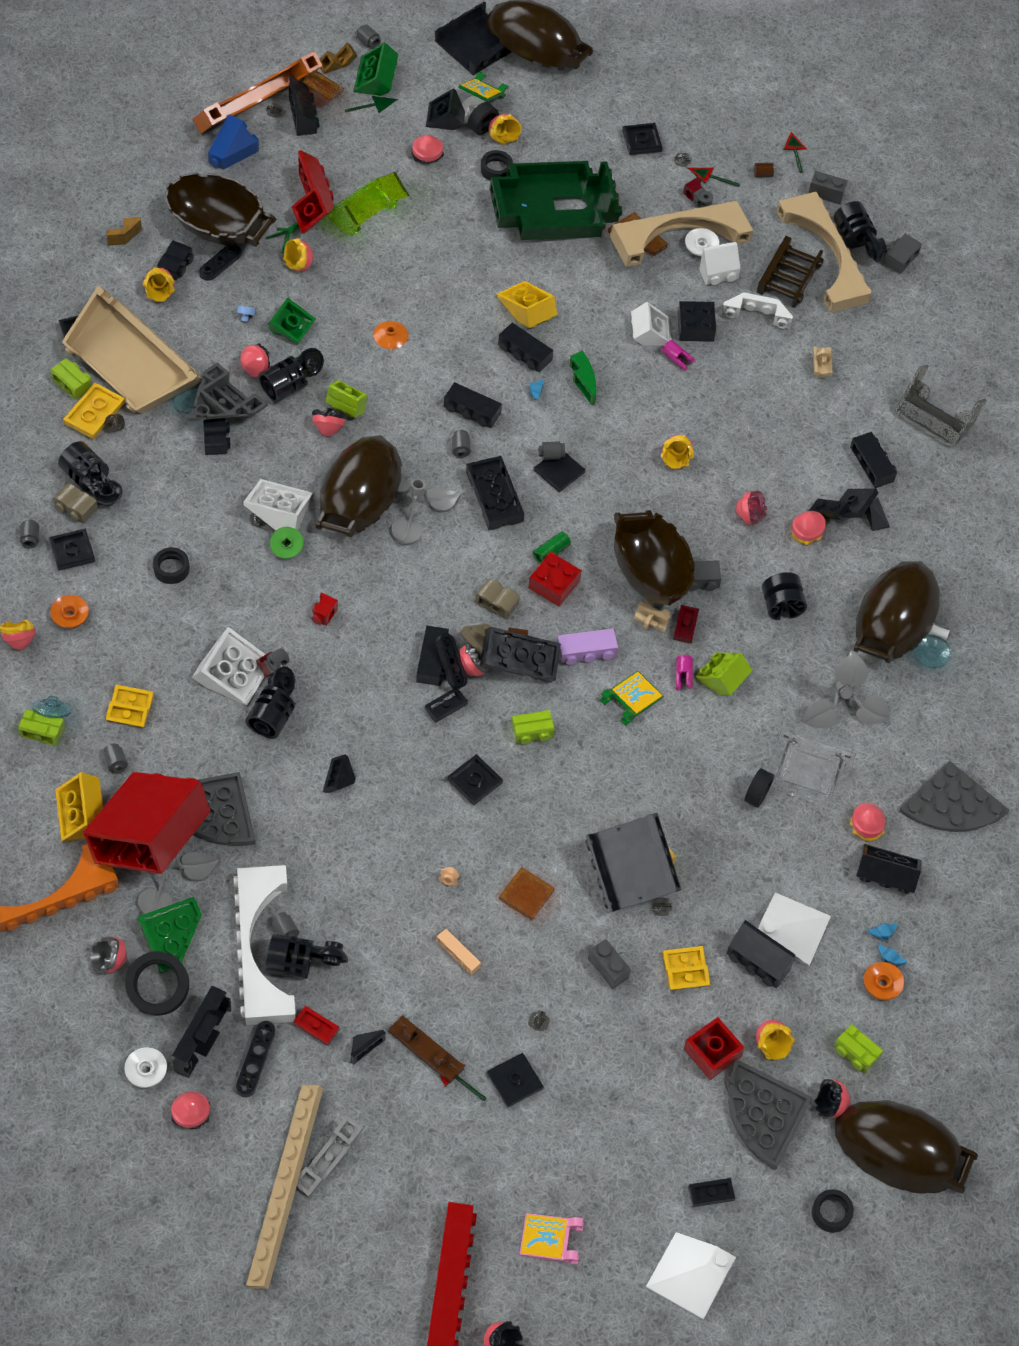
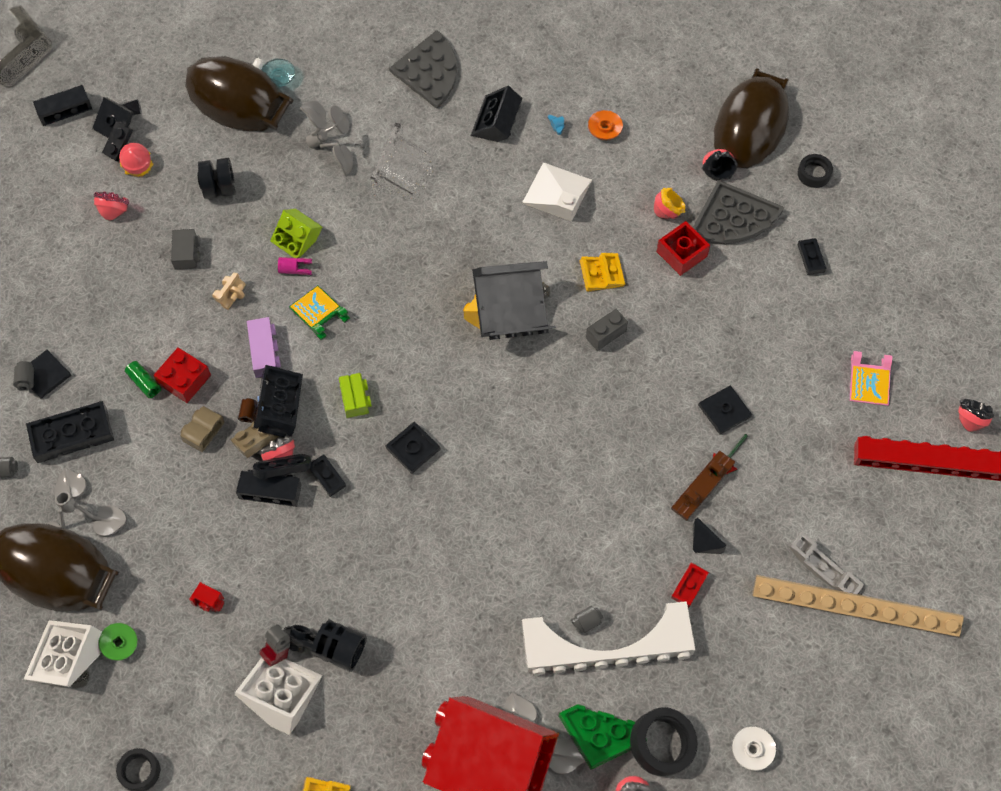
camera: 85 degrees left, 5 degrees up
(190, 1110) = (794, 699): coral hair -> none
(200, 1032) = (716, 692): black piece -> none
(229, 815) = (437, 685): dark grey plate -> none
(253, 1058) = (730, 638): black beam -> none
(302, 954) = (622, 602): black cylinder -> none
(339, 774) = (409, 577): black slope -> none
(449, 876) = (521, 468): light nougat plate -> none
(458, 952) = (600, 459): light nougat piece -> none
(526, 893) = (536, 400): clear orange plate -> none
(538, 1021) = (663, 391): clear smoke piece -> none
(653, 557) = (170, 279): dark brown windscreen -> none
(677, 452) = (37, 263): yellow hair -> none
(686, 624) = (239, 263): dark red plate -> none
(691, 1273) = (885, 272): white slope -> none
(759, 787) = (423, 205): black tyre -> none
(760, 954) = (591, 210): black slope -> none
(858, 1049) = (670, 145): lime brick -> none
(868, 822) = (452, 128): coral hair -> none
(891, 956) = (580, 120): dark azure piece -> none

